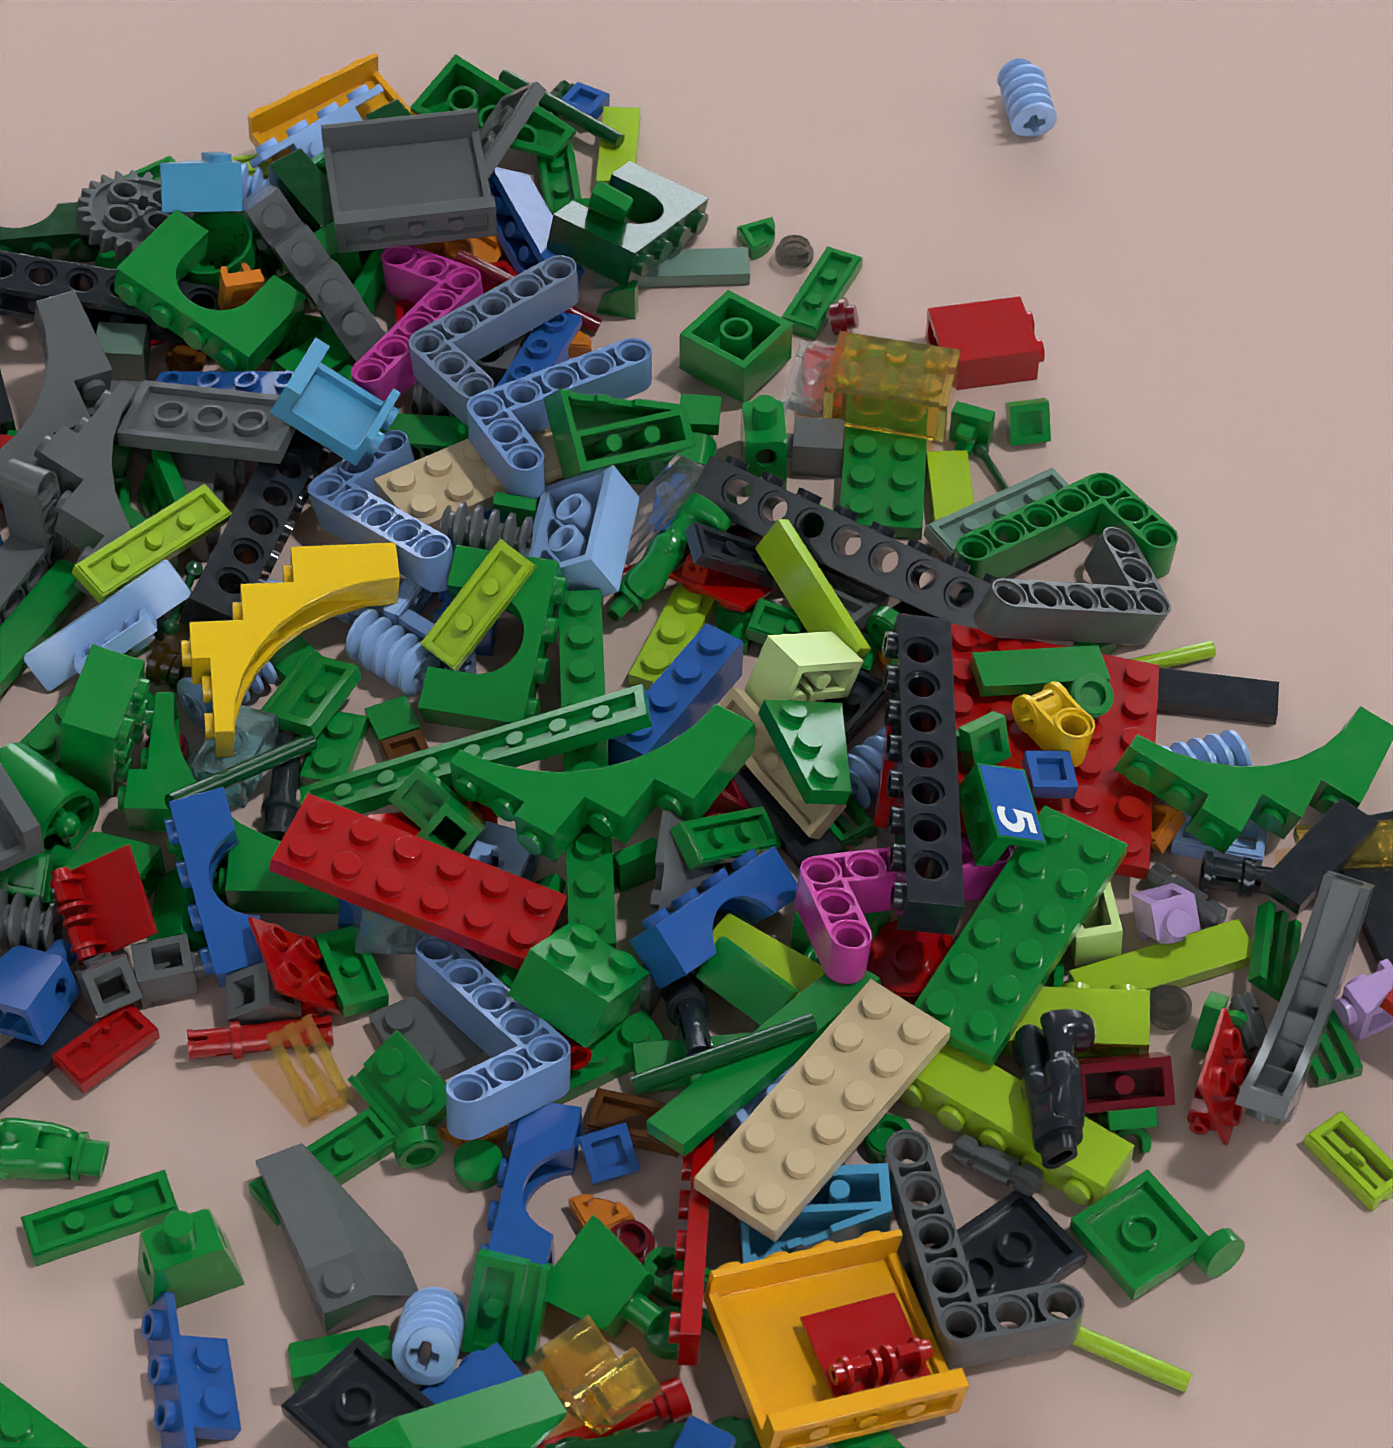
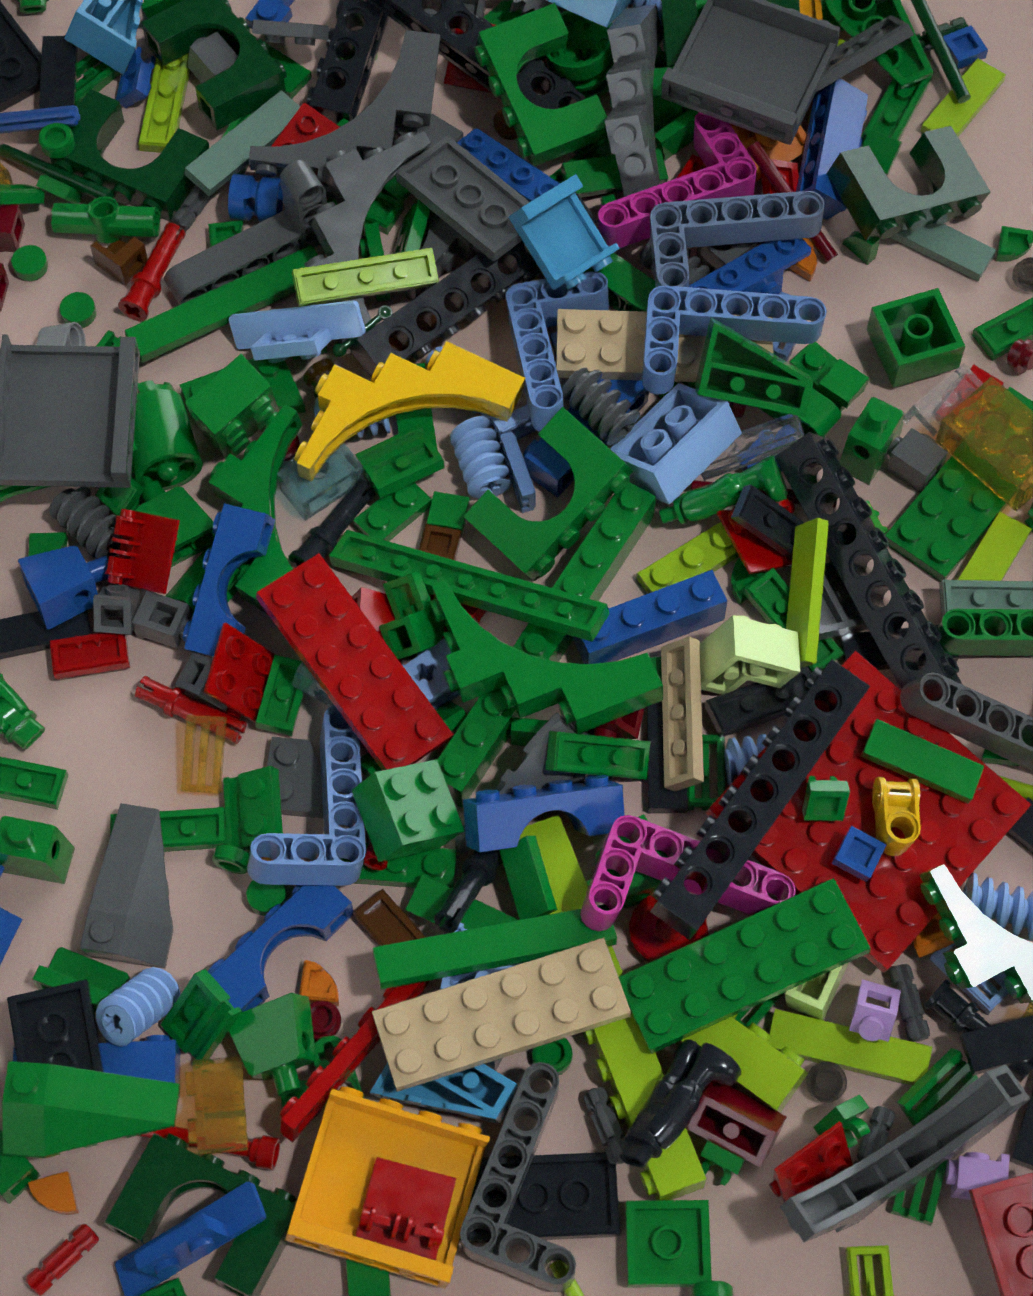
camera: 35 degrees right, 15 degrees up
(126, 349) = (464, 92): sand green brick -> none
(238, 287) = (568, 90): orange tile -> none
(248, 768) = (304, 499): dark green bar -> none
(478, 605) = (549, 463): lime tile -> none
(514, 504) = (637, 394): green tile -> none
(609, 1154) = (352, 945): blue plate -> none
(610, 202) = (892, 168): green tile -> none
(722, 1054) = (460, 930): dark green bar -> none
(811, 746) = (708, 721): green wing -> none
(879, 622) = (845, 646): green tile -> none
(998, 812) = (792, 865): panel -> none
(1092, 694) = (943, 806): green tile -> none

